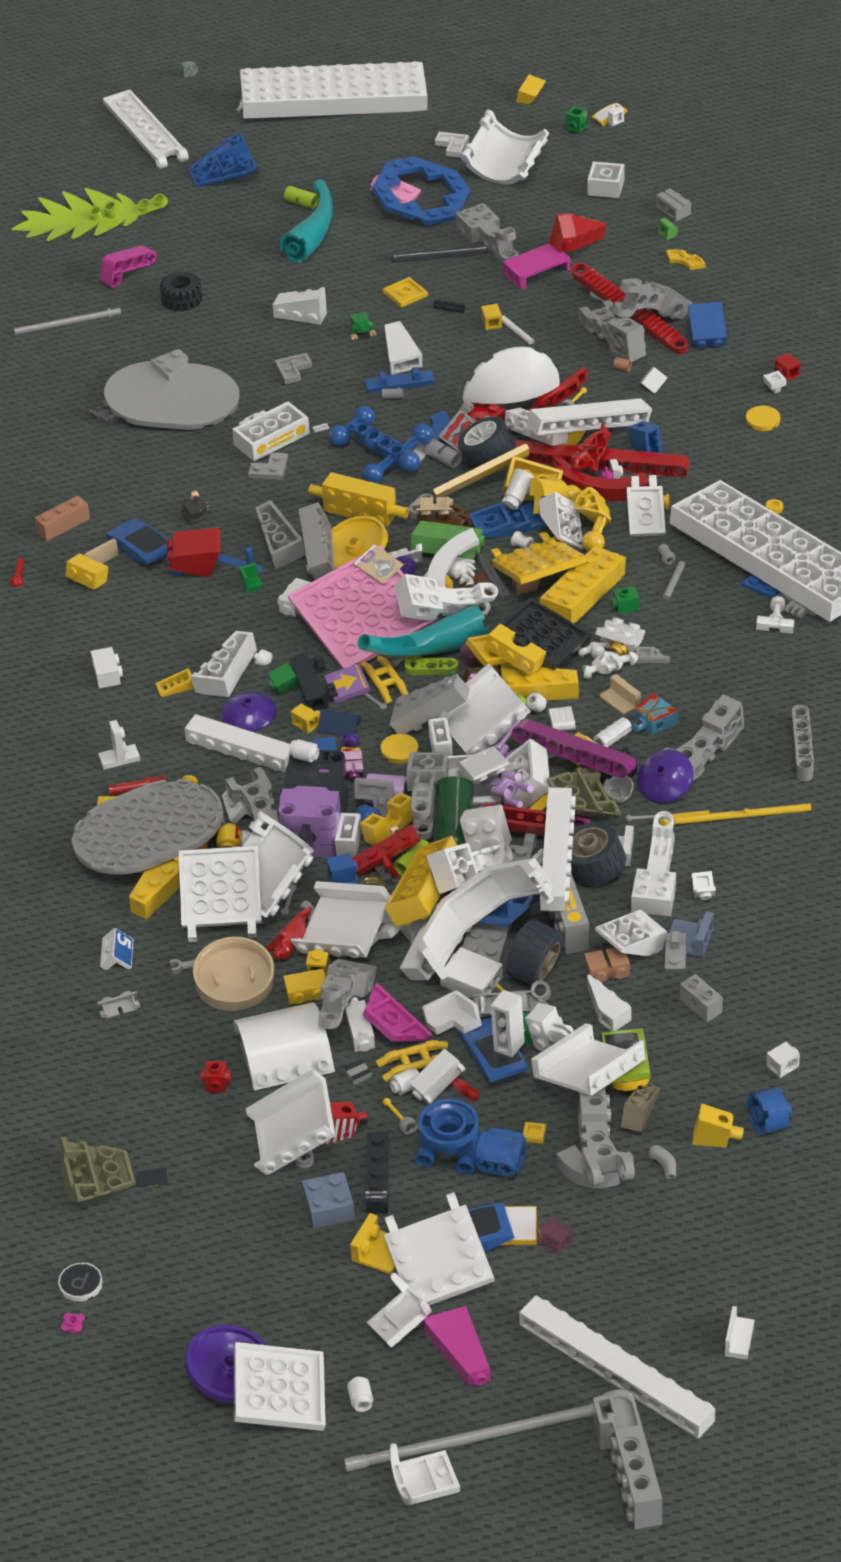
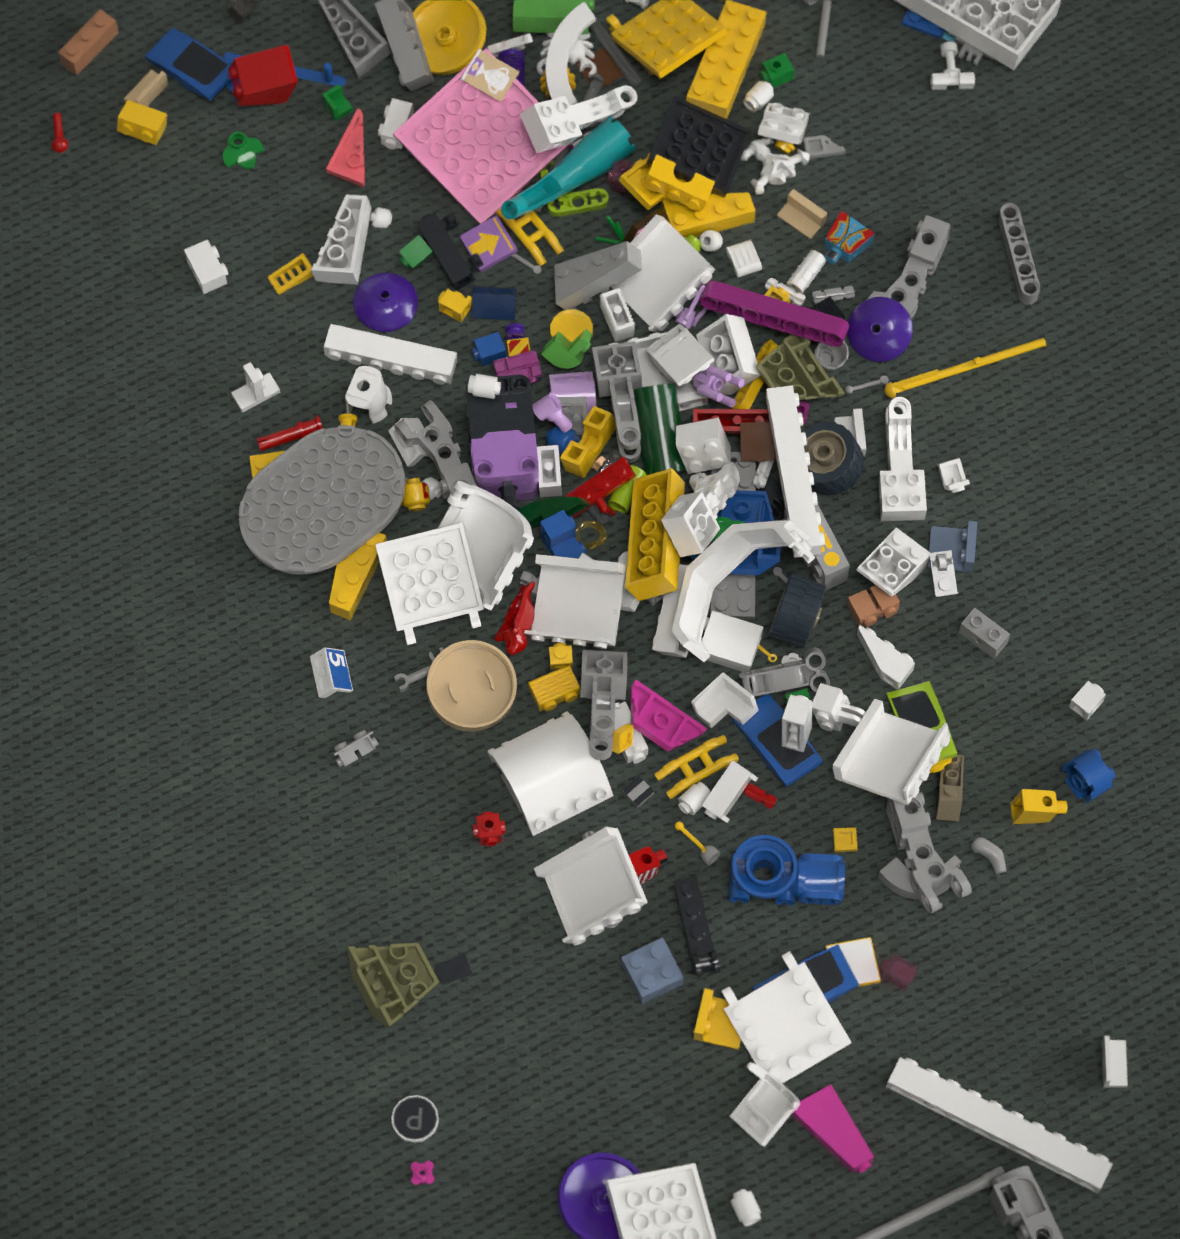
camera: 15 degrees left, 25 degrees up
(162, 601) = (244, 153): none -> green plate
(215, 763) = (374, 398): none -> white piece
(251, 612) = (349, 156): none -> coral wing
(351, 1019) = (622, 738): none -> yellow tile
(358, 783) = (550, 409): none -> lavender pin
(360, 853) = (545, 508): none -> dark green slope
(387, 759) = (566, 353): none -> bright green brick
(532, 834) = (756, 441): none -> reddish brown piece
(604, 613) = (758, 96): none -> white brick
(637, 752) = (836, 293): none -> light grey axle

